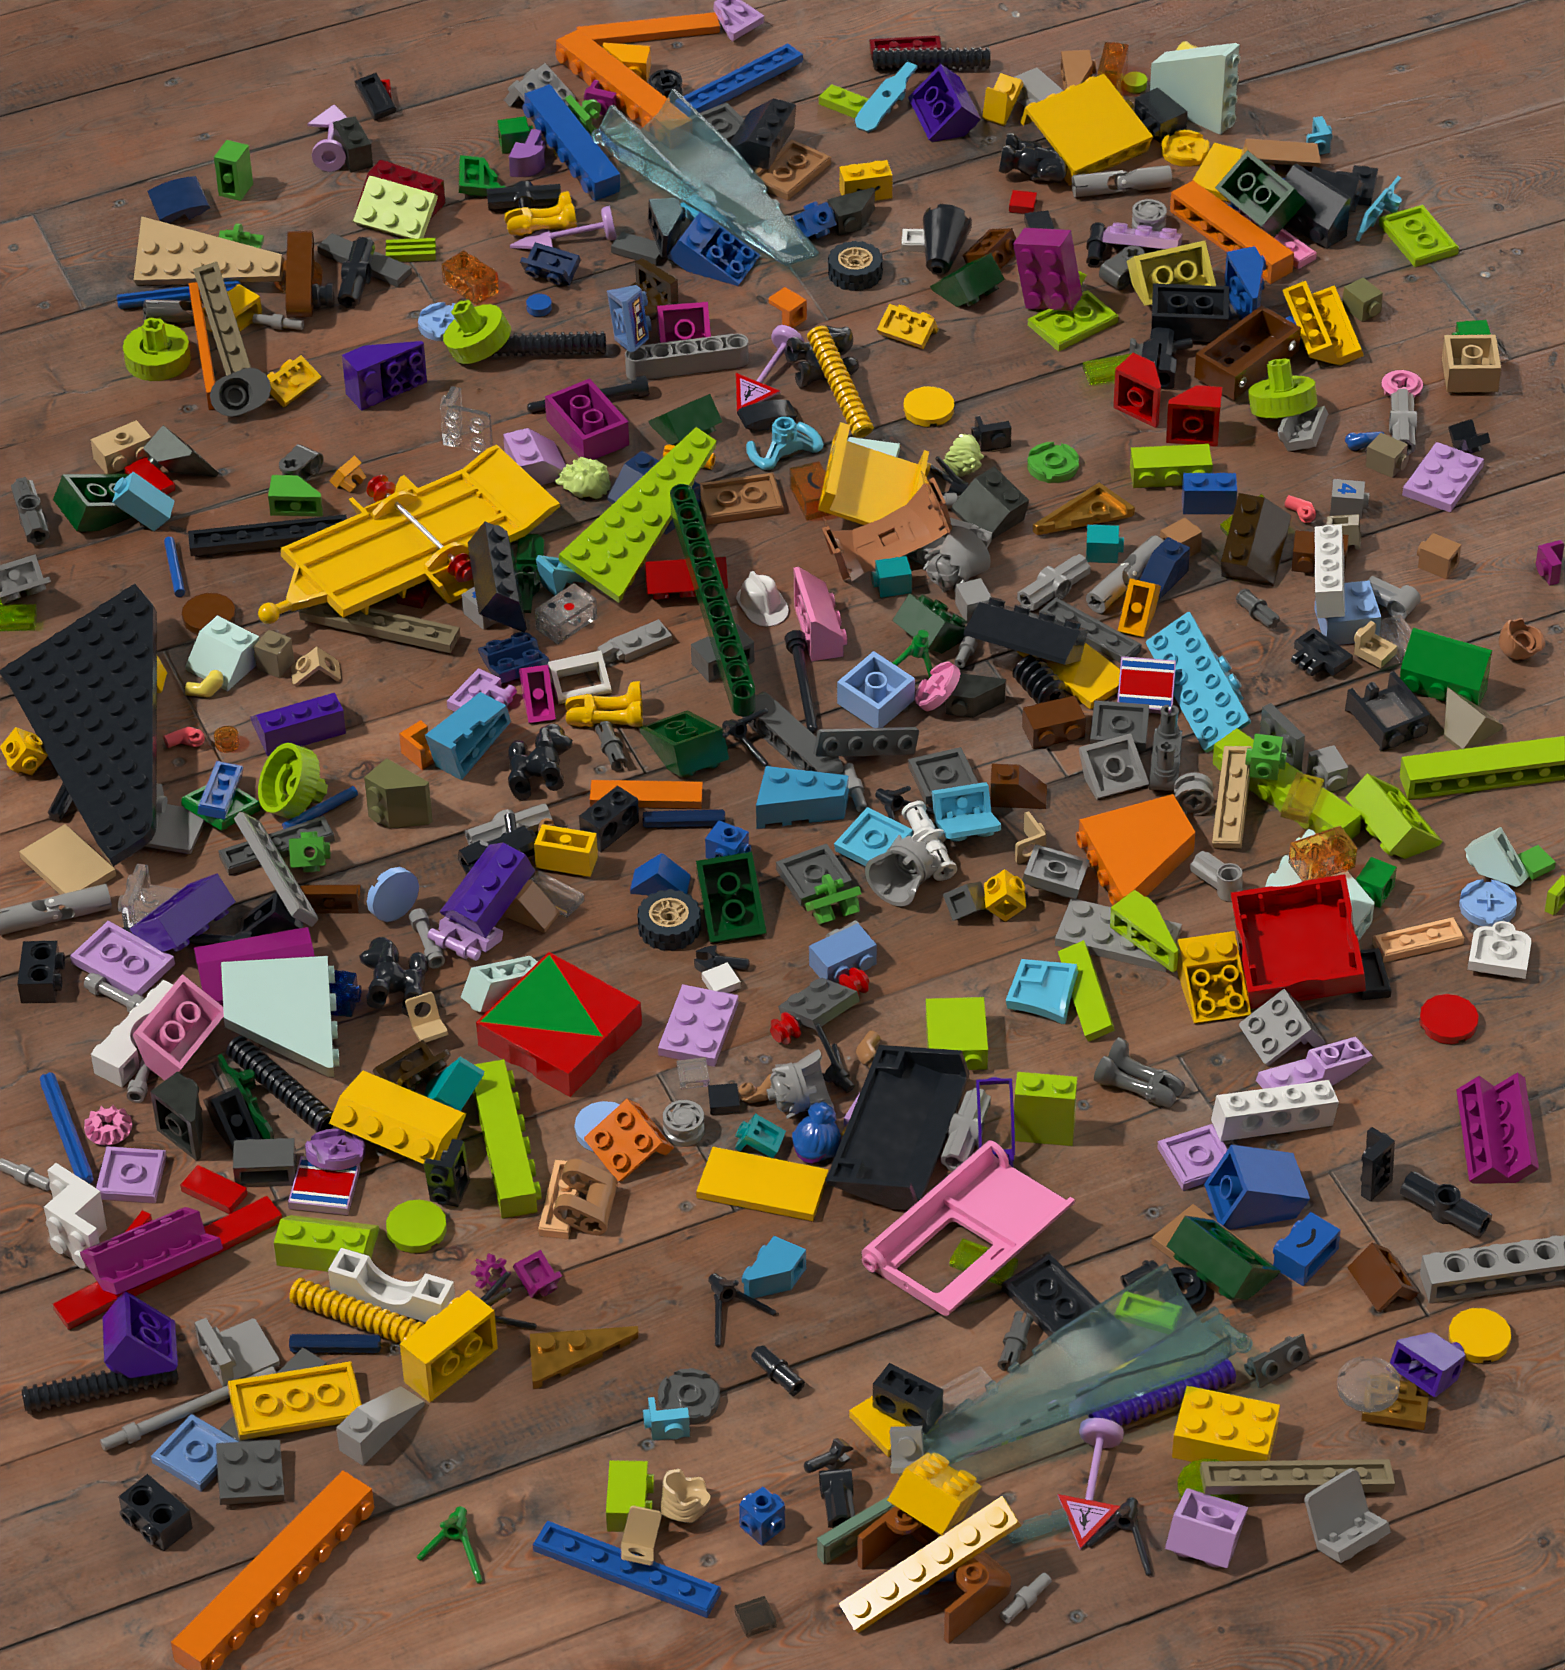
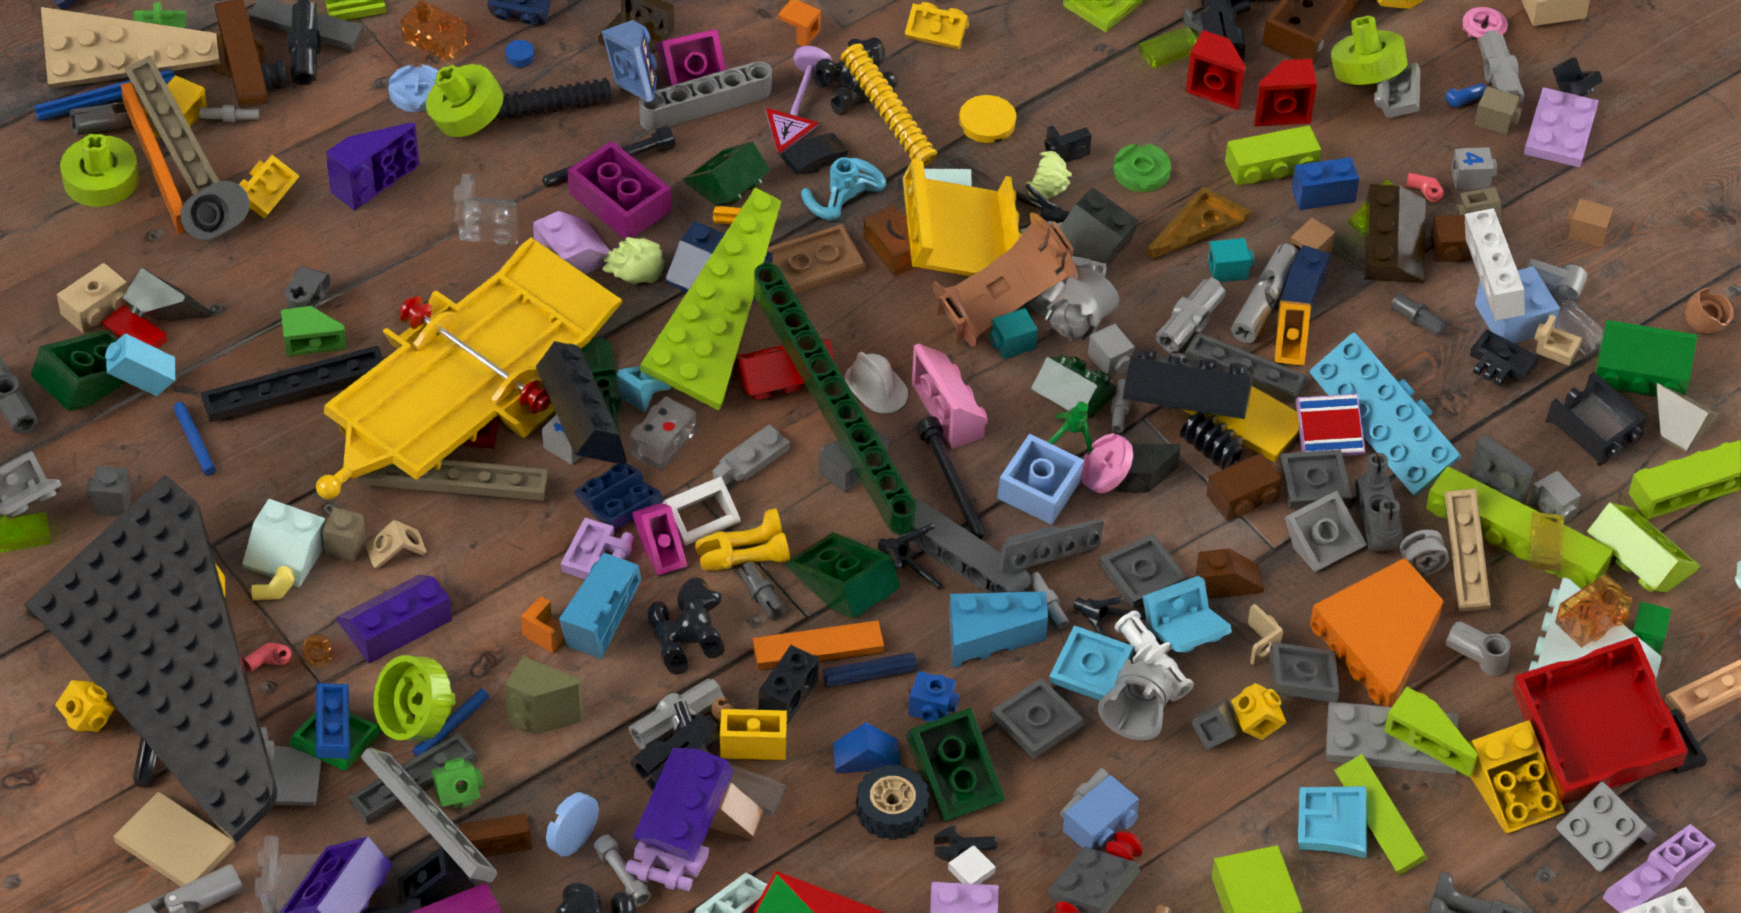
camera: 15 degrees left, 5 degrees up
(90, 592) = (110, 490): none -> dark grey brick
(204, 608) = (248, 490): reddish brown tile -> none
(347, 472) = (363, 292): light orange tile -> none
(822, 907) = (1083, 743): bright green hips -> none
(1266, 757) = (1497, 500): bright green brick -> none
(1549, 561) = (1706, 213): magenta bracket -> none

